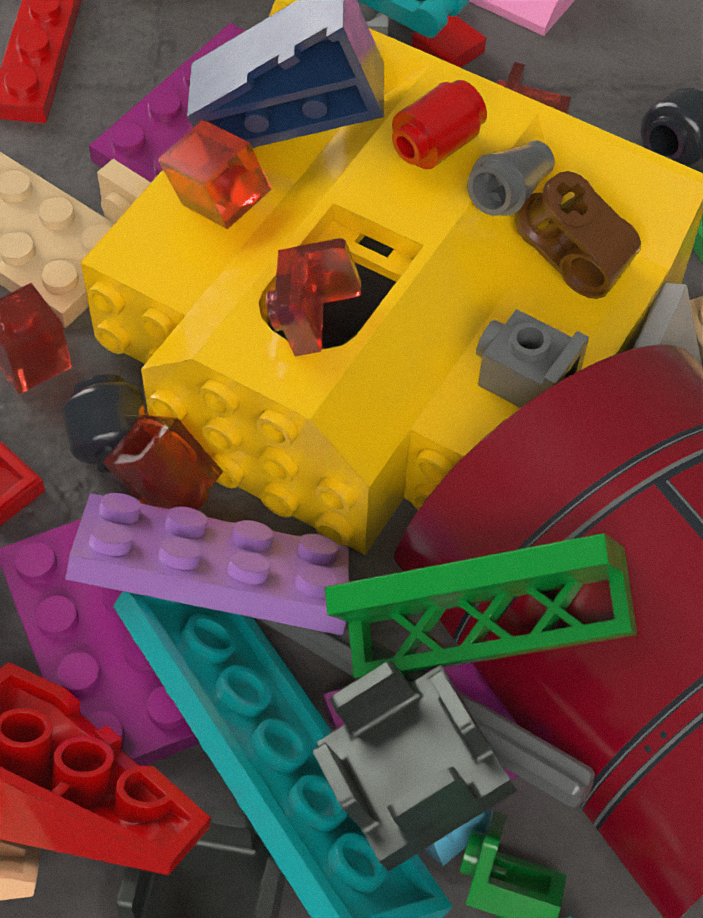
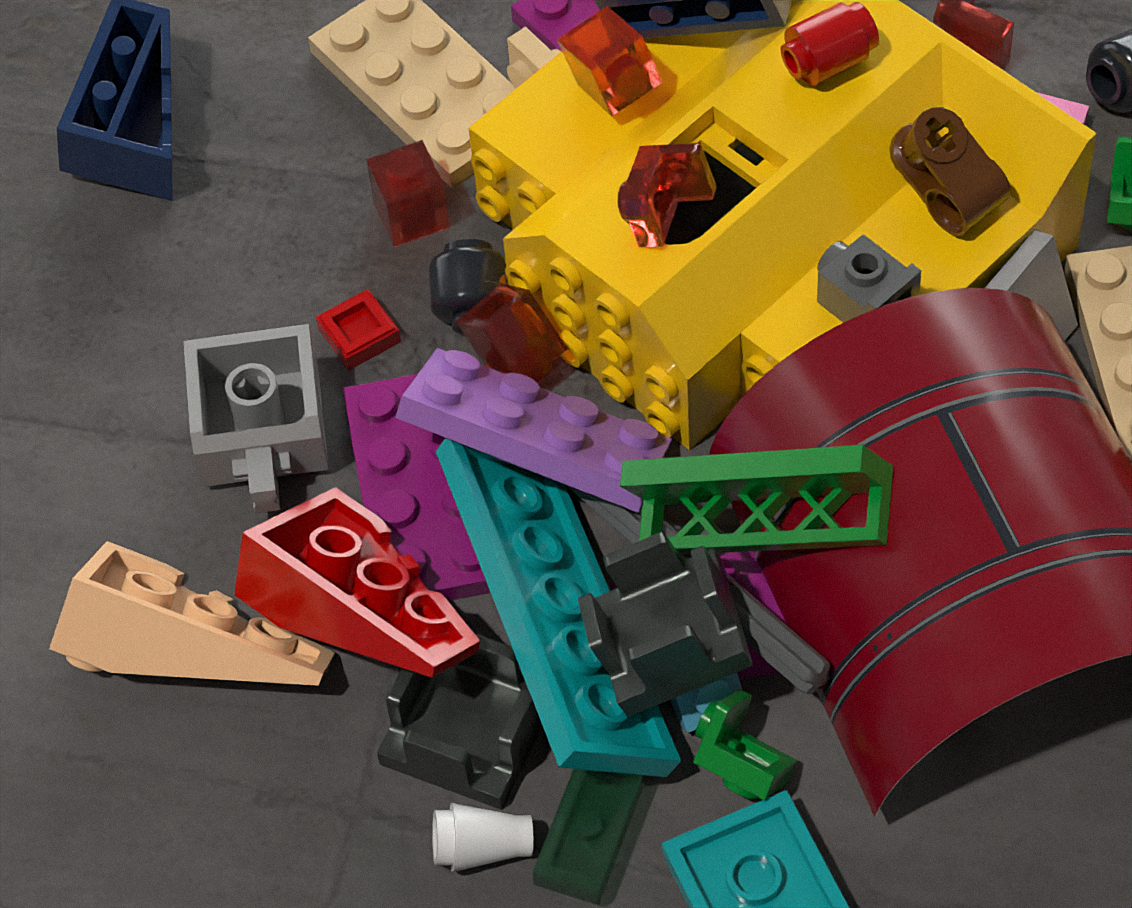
camera: 20 degrees right, 0 degrees up
(507, 178) = (886, 105): dark grey cone -> none

